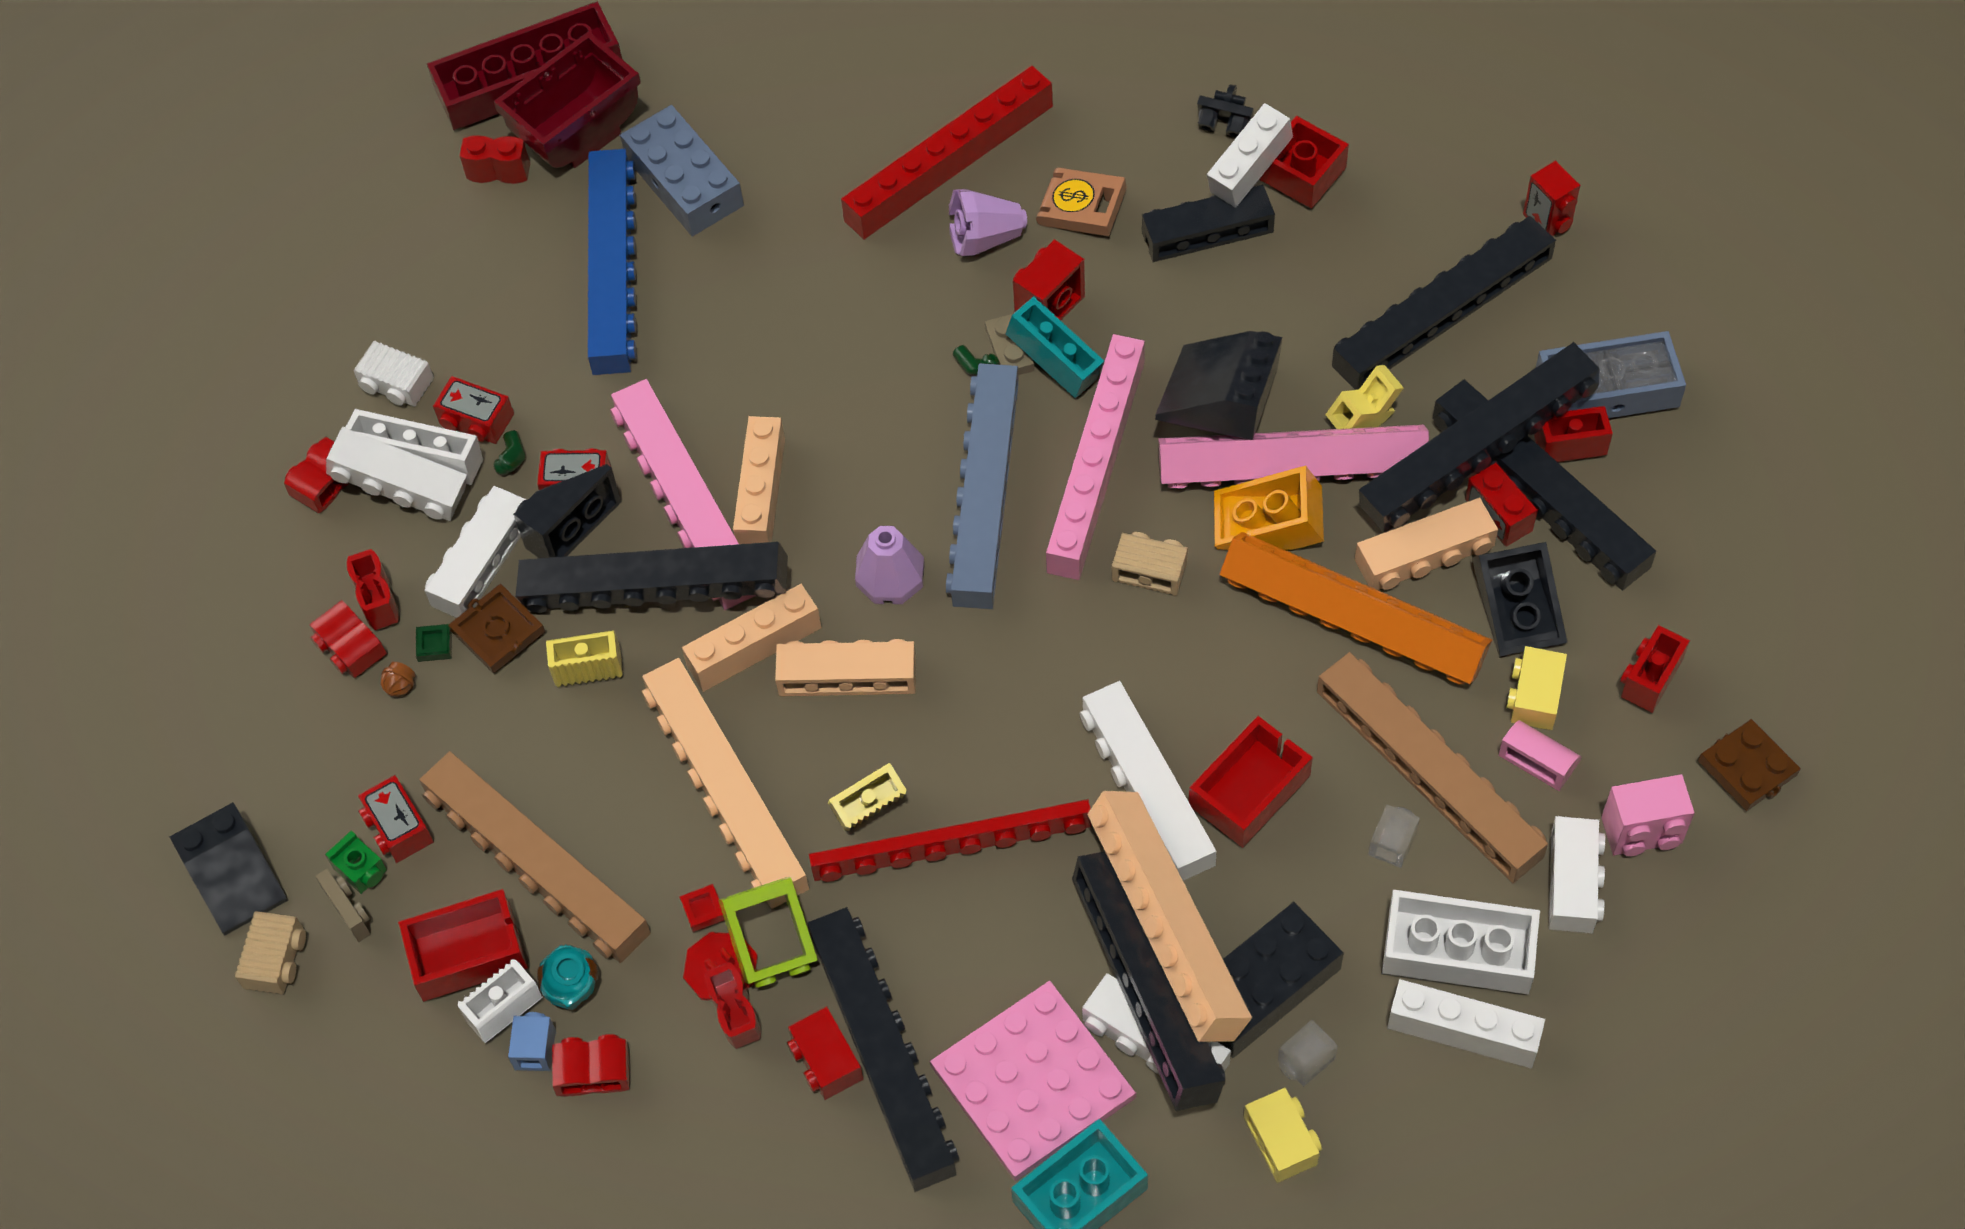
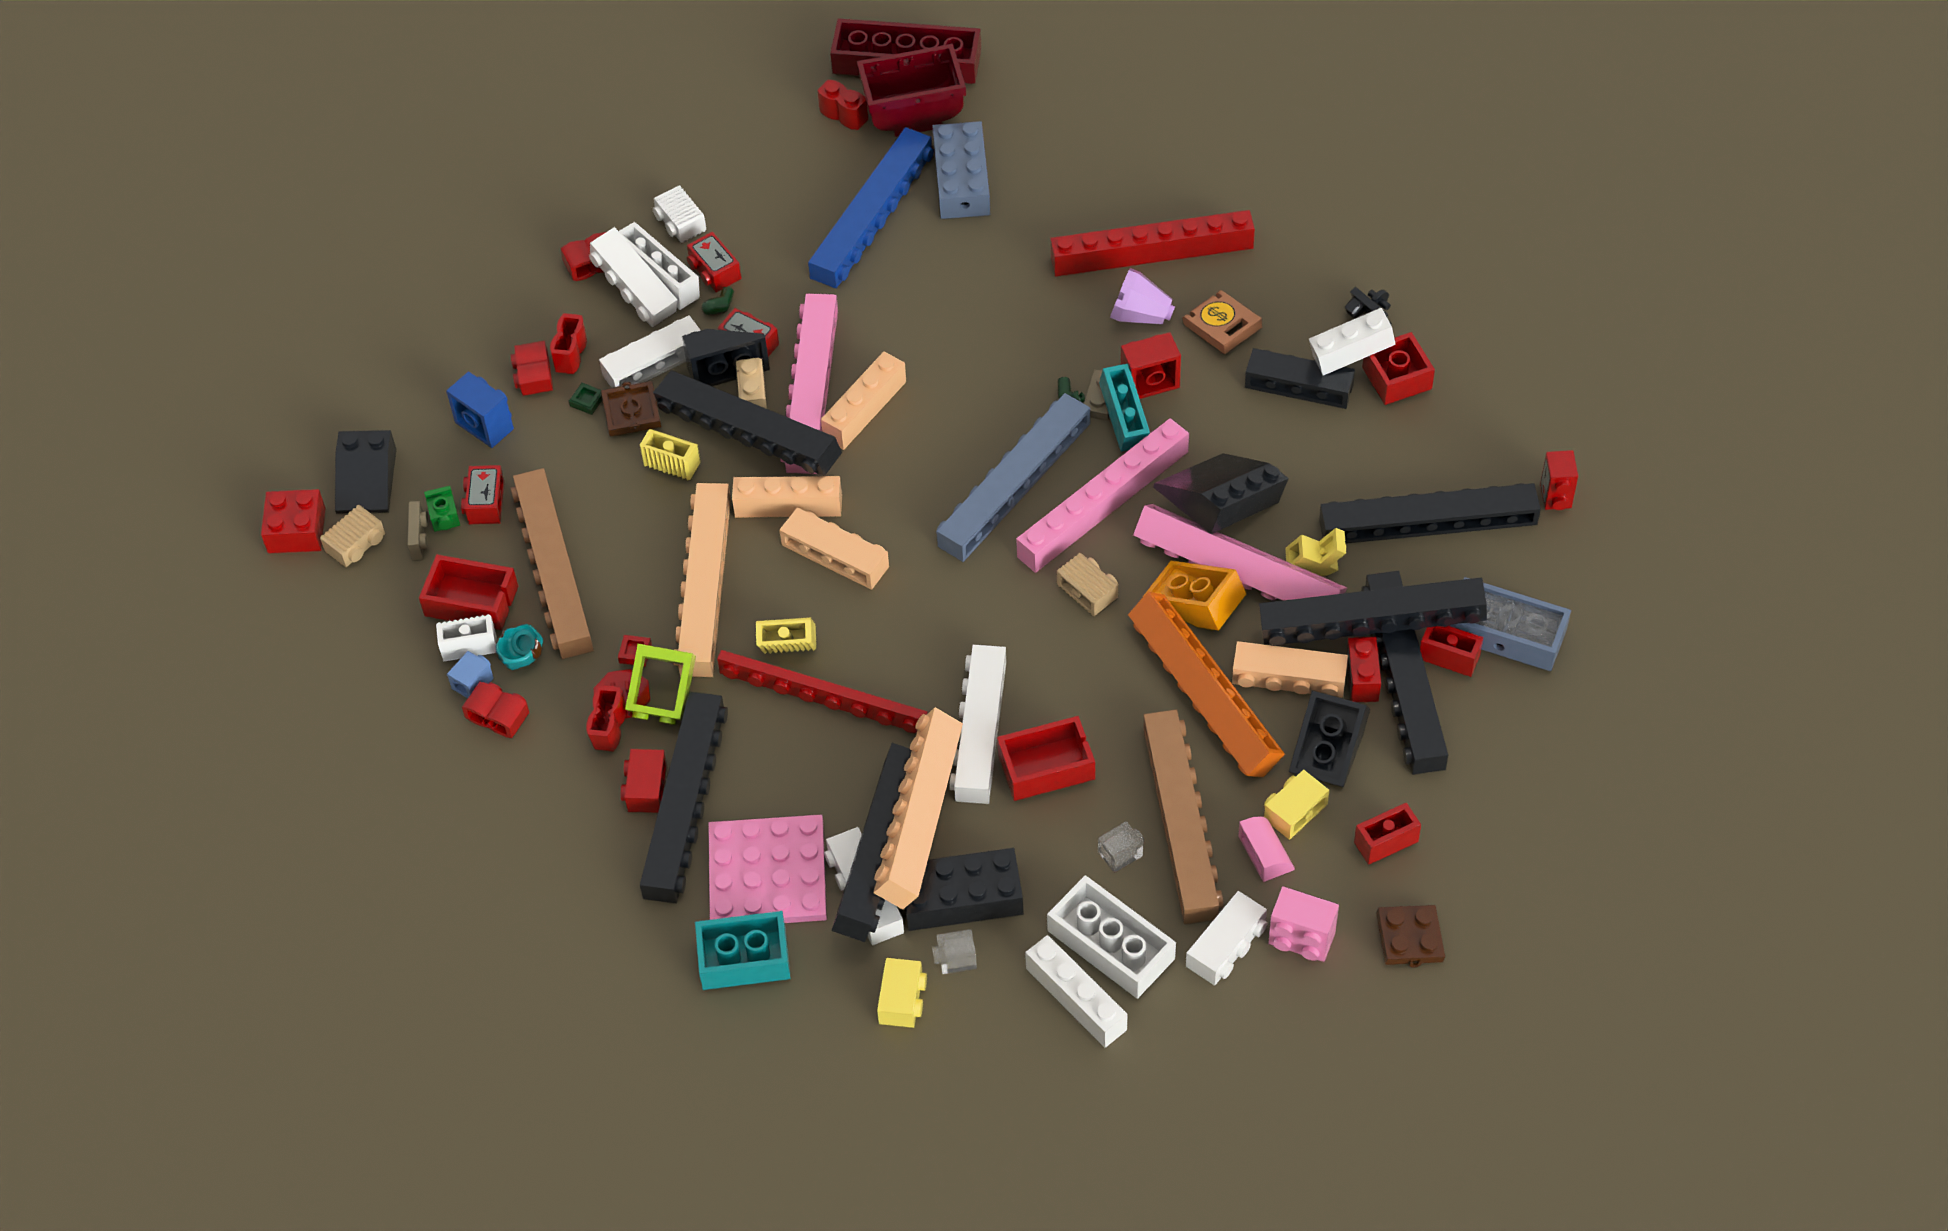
camera: 30 degrees right, 5 degrees down
(183, 973) = (293, 521): none -> red brick
(323, 720) = (480, 409): none -> blue brick
(397, 679) = (546, 409): dark orange plate -> none
(619, 527) = (751, 381): none -> tan brick
(889, 567) = (910, 496): lavender cone -> none

